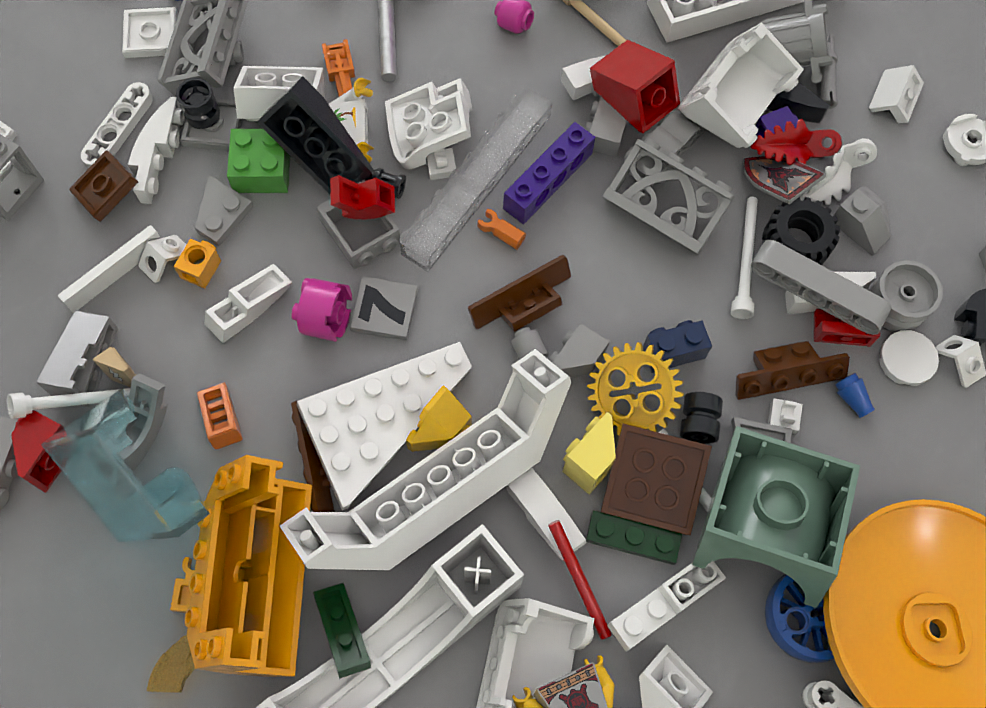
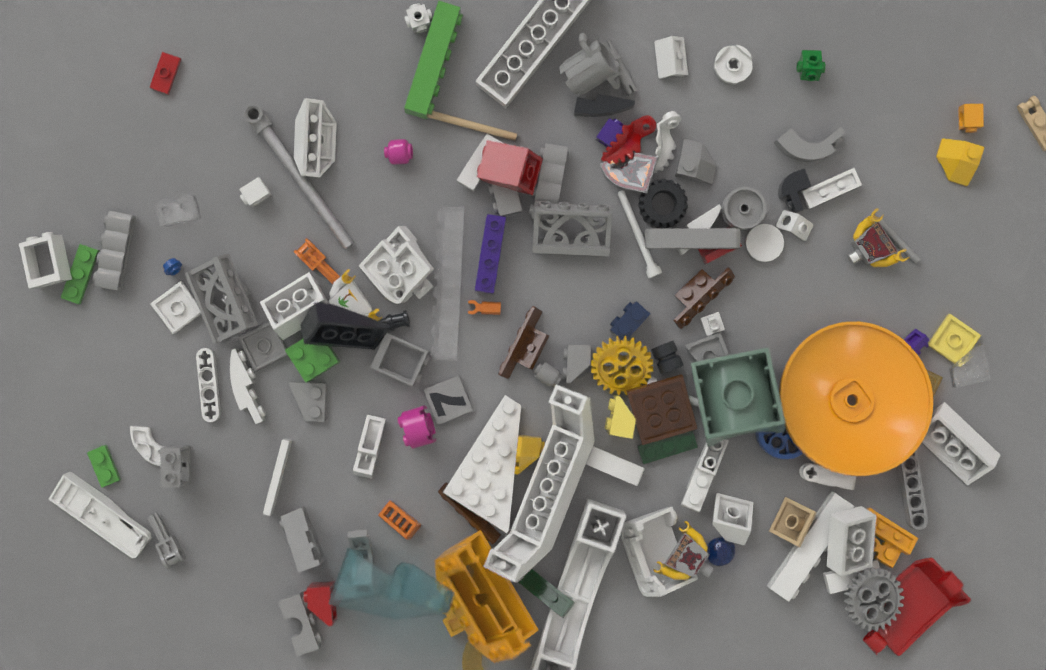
camera: 25 degrees left, 20 degrees up
(20, 404) = (303, 591): white piece -> none
(103, 185) = (234, 430): reddish brown tile -> none
(115, 366) = (331, 532): tan slope -> none
(162, 251) = (300, 447): white bracket -> none
(198, 103) = (252, 345): black wheel -> none
(200, 273) = (320, 449): light orange brick -> none
(362, 200) = (397, 350): red brick -> none
(579, 579) = (652, 490): red bar -> none
(741, 86) = (573, 130): white windscreen -> none
(855, 394) = (745, 287): blue cone -> none

